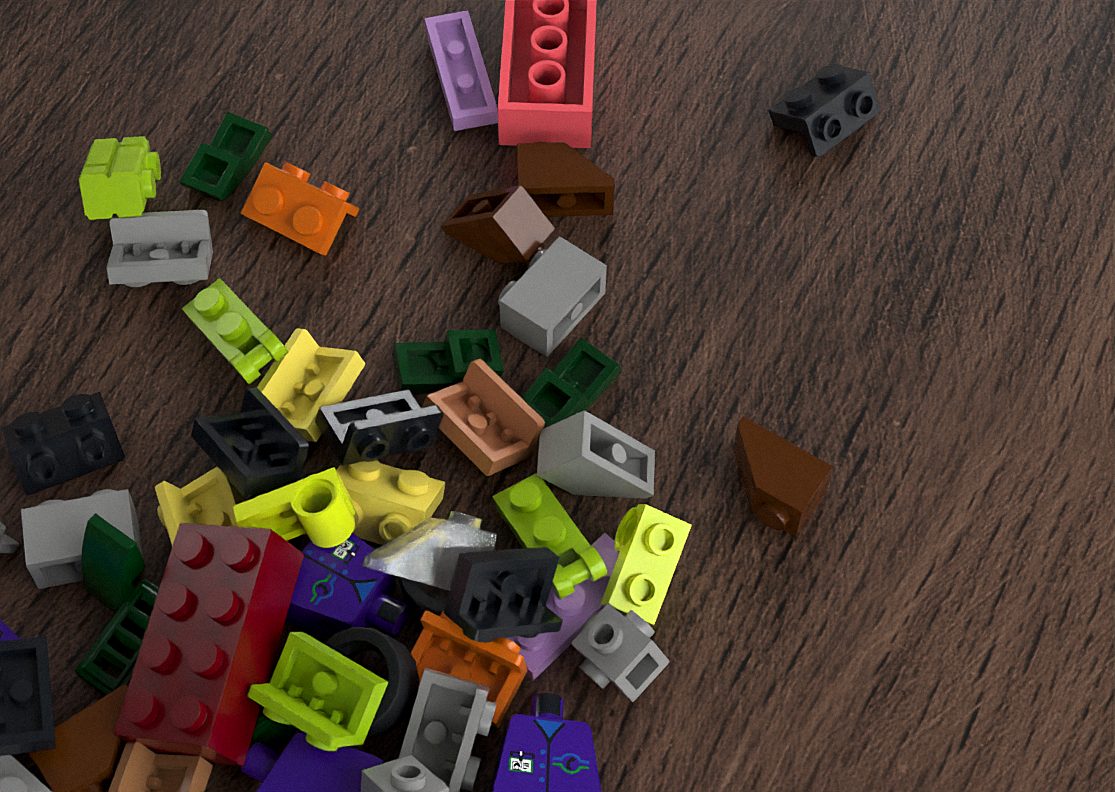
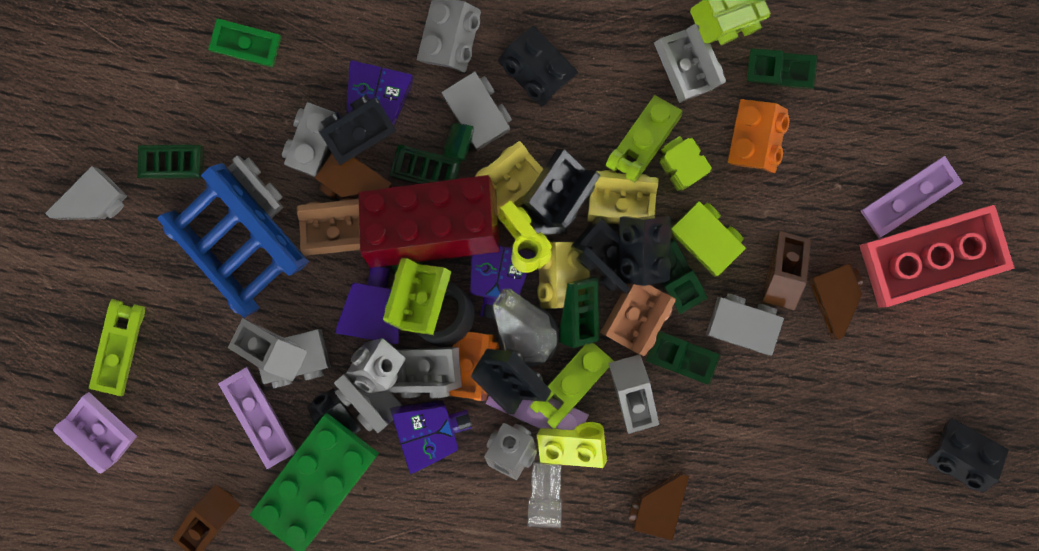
camera: 70 degrees right, 30 degrees up
(291, 286) = (683, 162): none -> lime brick
(386, 371) = (645, 249): none -> black bracket
(411, 303) = (708, 238): none -> lime brick
(446, 481) = (588, 331): none -> dark green slope
(723, 636) = (545, 502): none -> clear piece

